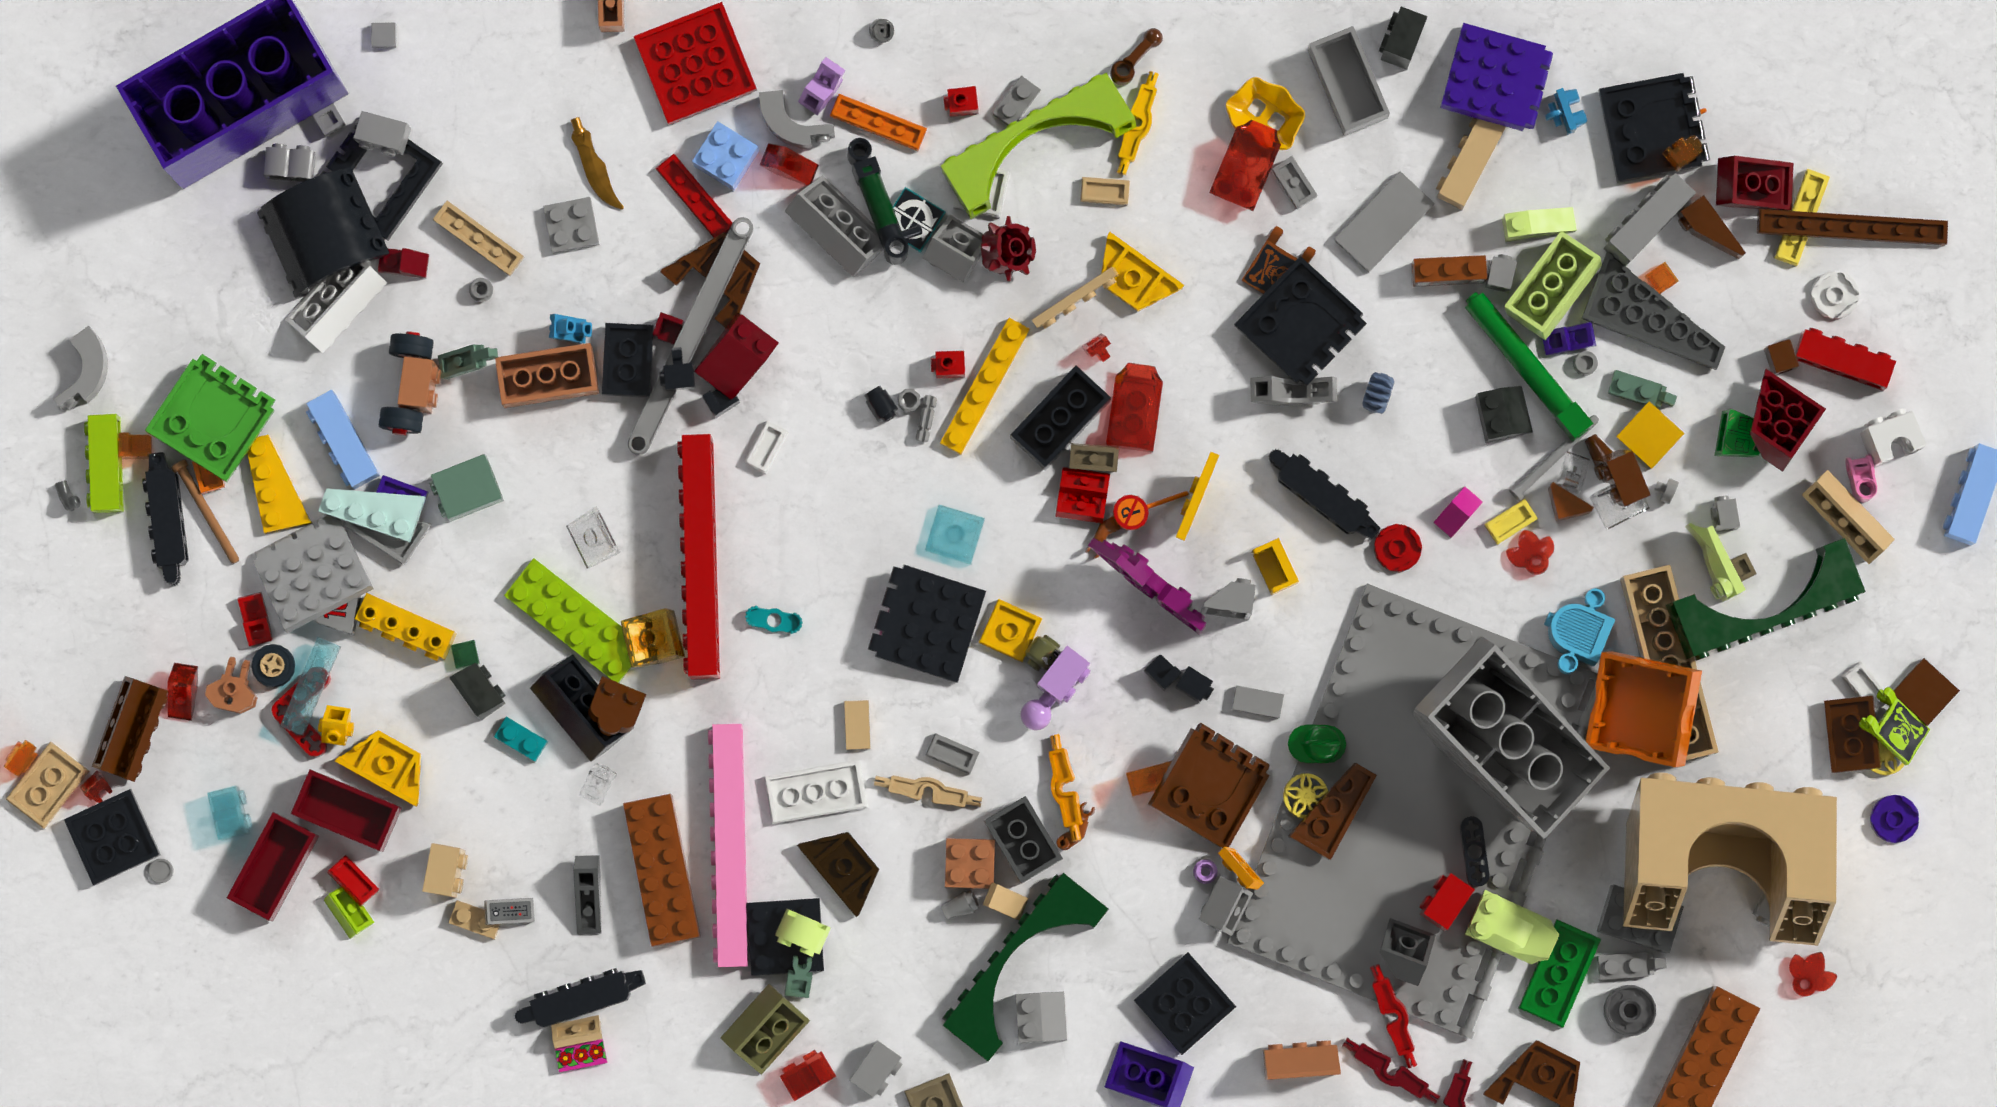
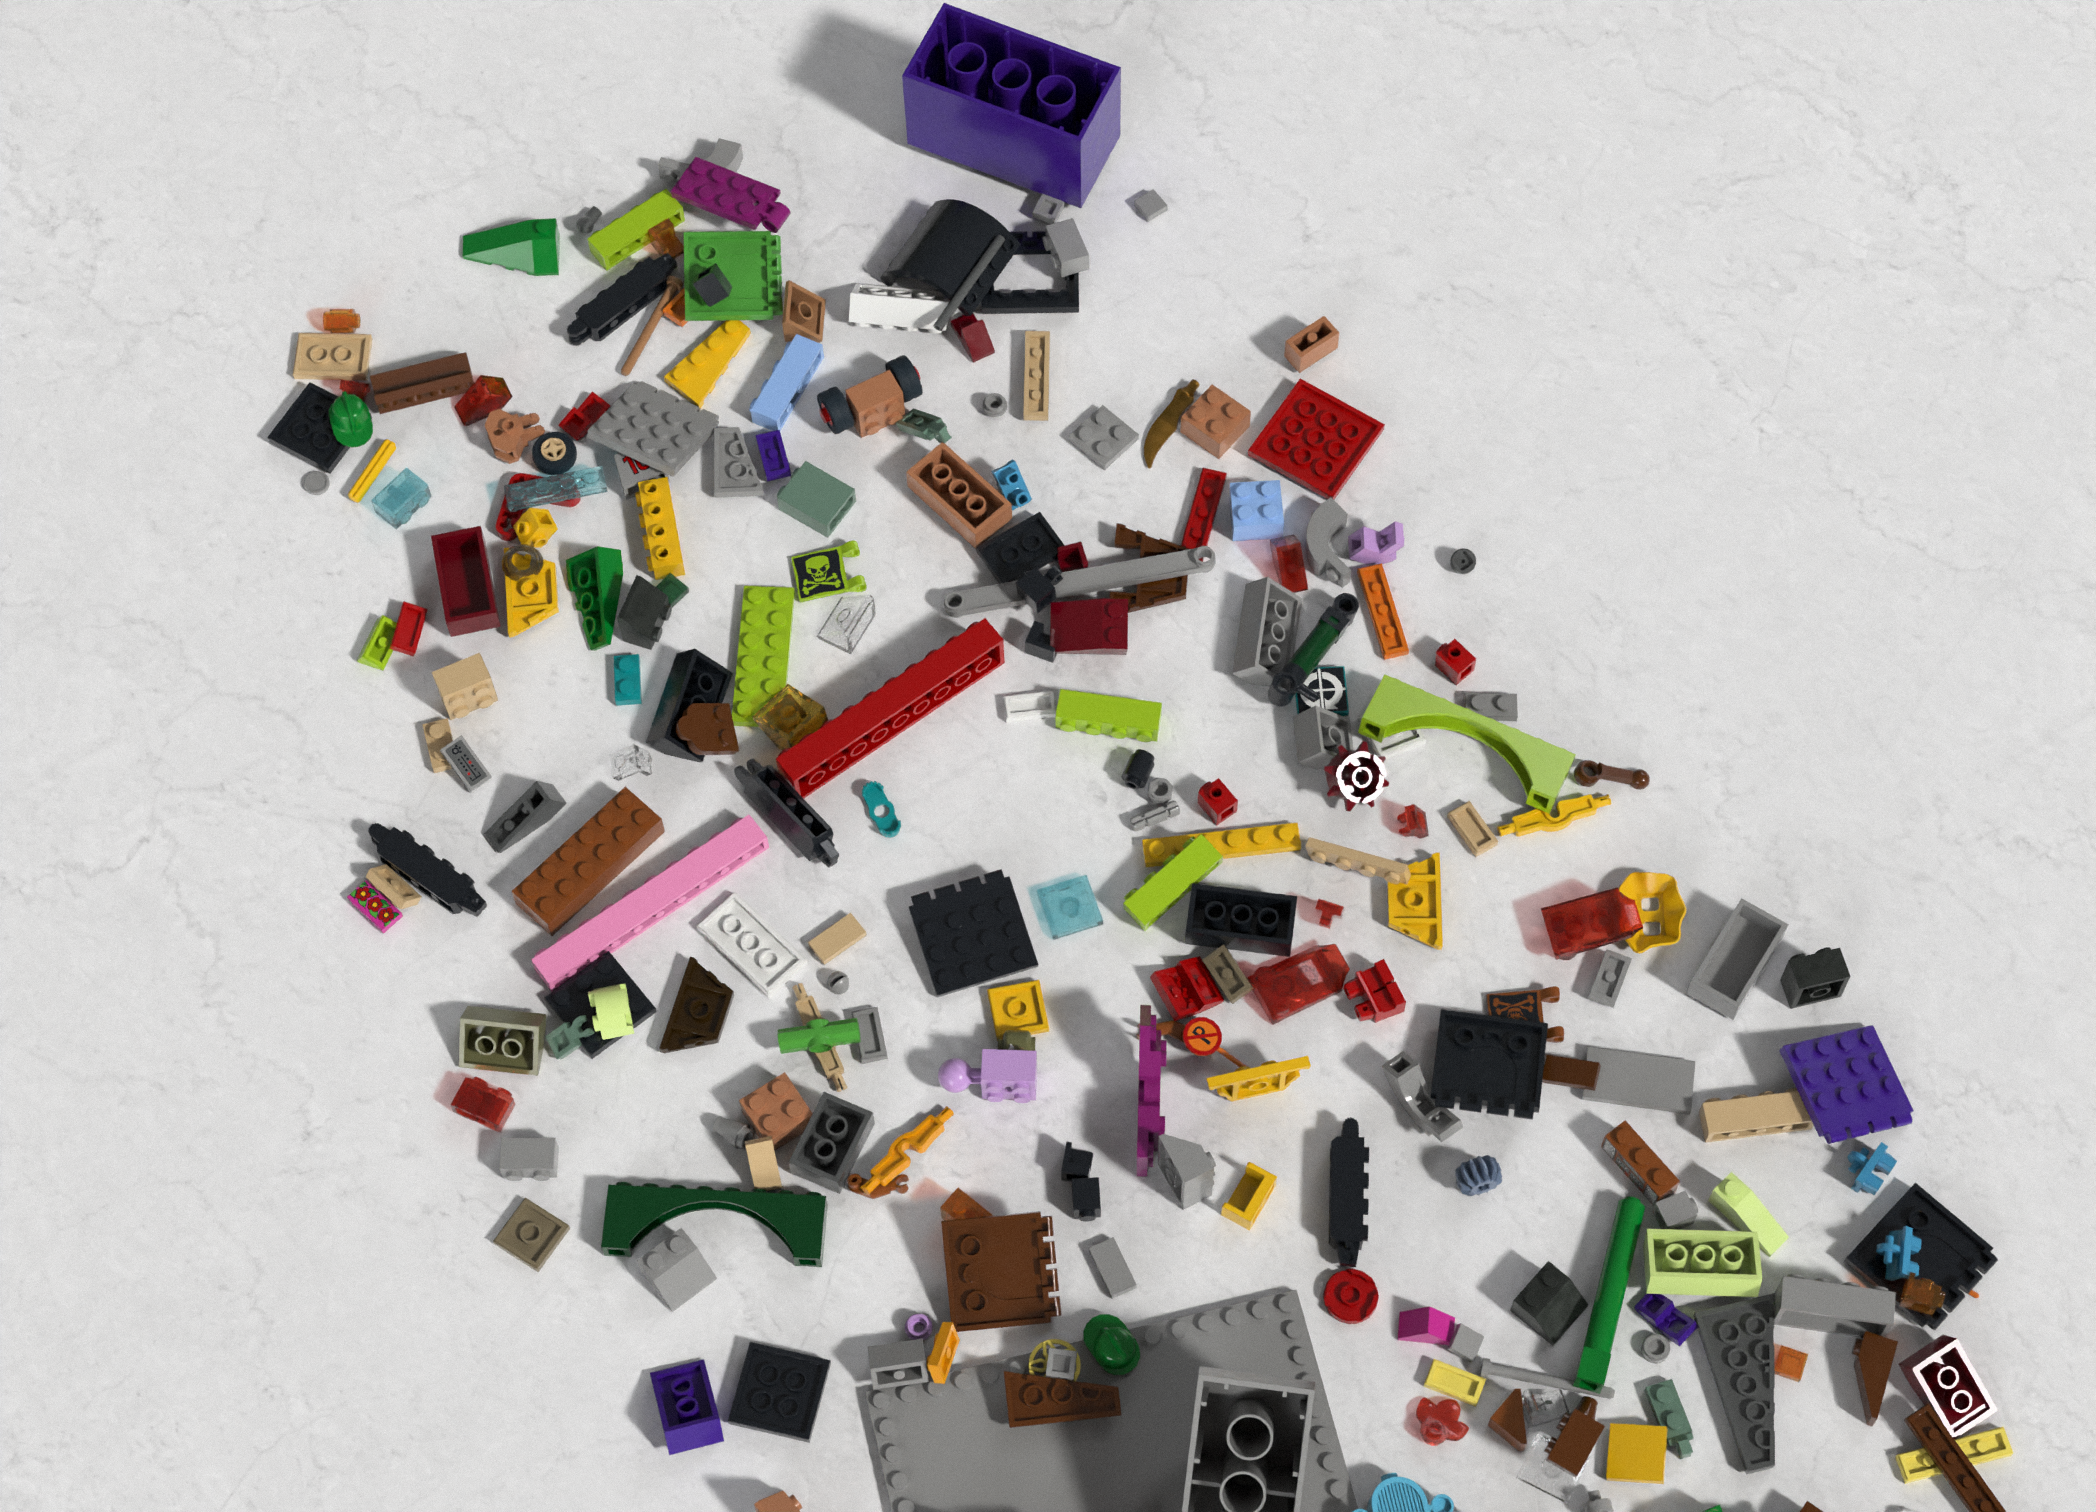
camera: 55 degrees right, 20 degrees down
(52, 569) = (521, 246): none -> green wedge
(126, 809) = (350, 420): none -> green piece
(137, 370) = (731, 196): none -> magenta hinge
(182, 820) = (372, 470): none -> yellow axle
(216, 441) = (712, 285): none -> black panel
(272, 866) = (376, 556): dark red piece -> none
(288, 383) = (802, 313): none -> medium nougat slope
(289, 163) = (988, 196): light grey brick -> none
(346, 755) = (535, 565): none -> clear smoke piece
(365, 236) = (969, 282): none -> dark grey piece
(381, 512) = (744, 444): light aqua wing -> none
(424, 710) = (597, 586): none -> green wedge
(534, 526) = (824, 574): none -> flag
(624, 130) = (1215, 421): none -> nougat brick
(729, 692) = (788, 811): none -> black hinge
(820, 394) = (1108, 715): none -> lime brick
(899, 748) = (841, 985): none -> light grey hinge
(932, 793) = (819, 1035): none -> bright green piece
(994, 446) = (1172, 882): none -> lime brick
(1071, 229) = (1415, 820): none -> clear red tile
(1196, 361) = (1379, 992): none -> red hips
(1312, 792) = (1061, 1364): none -> light grey plate
(1346, 266) = (1571, 1072): none -> reddish brown tile
(1489, 493) = (1465, 1342): none -> light grey tile
(1644, 144) = (1897, 1253): none -> dark azure hips

